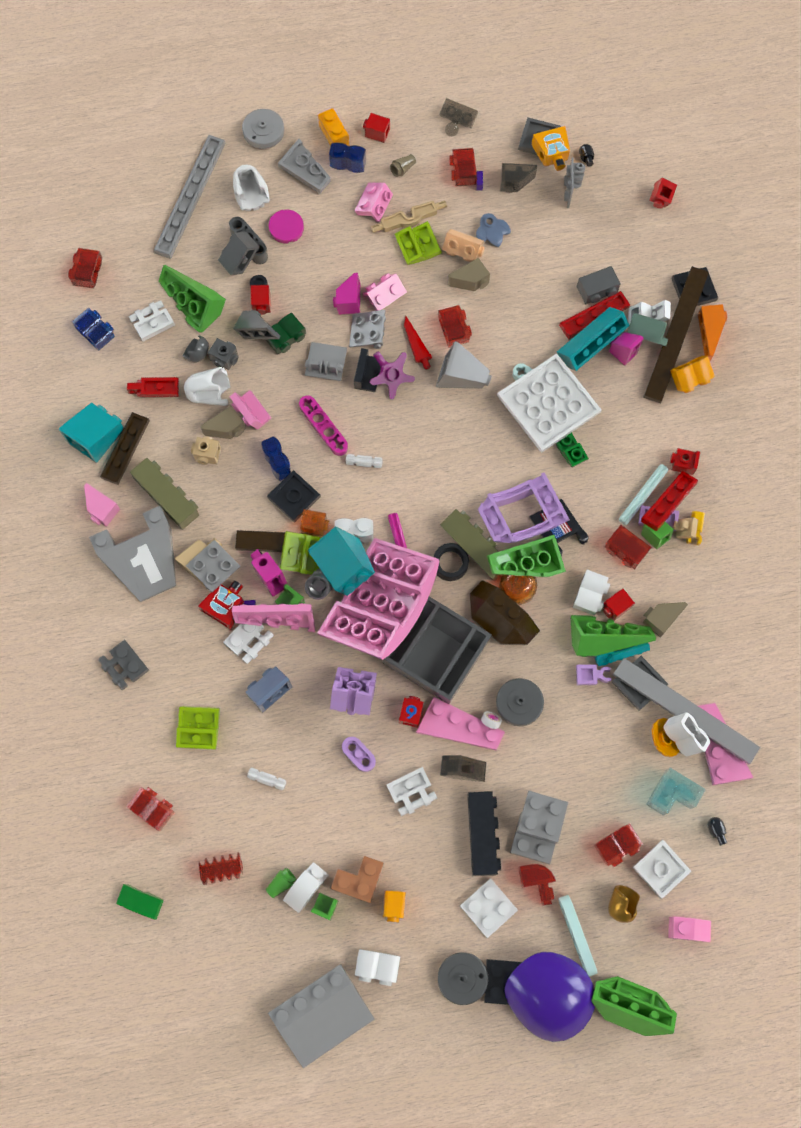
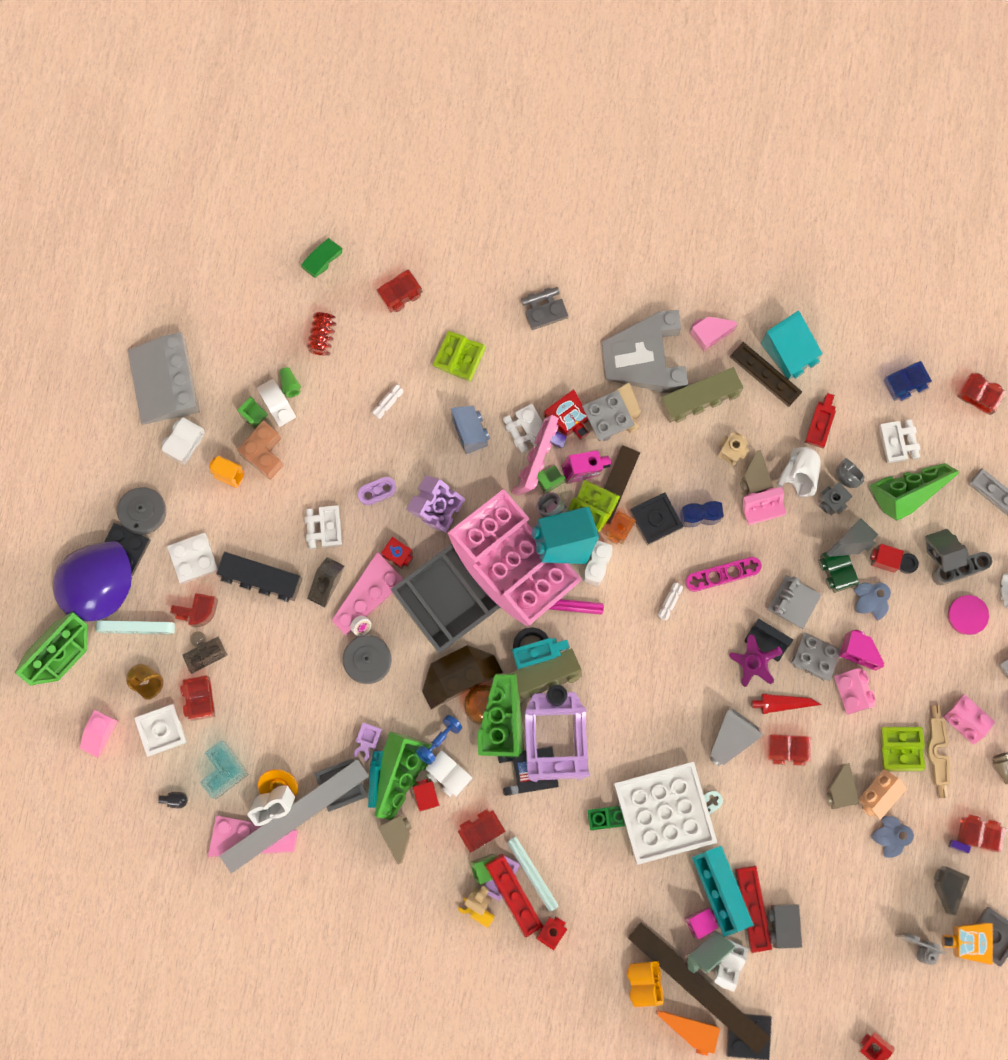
camera: 110 degrees right, 5 degrees up
(302, 302) = (870, 601): none -> sand blue plate
(455, 549) = (538, 652): none -> teal hinge
(487, 521) = (556, 695): none -> black tile
(539, 827) = (243, 629): light grey bracket -> none
(547, 605) = (426, 754): none -> blue wheel
(575, 857) = (204, 653): none -> clear smoke plate
(587, 154) = (955, 984): black cylinder -> none

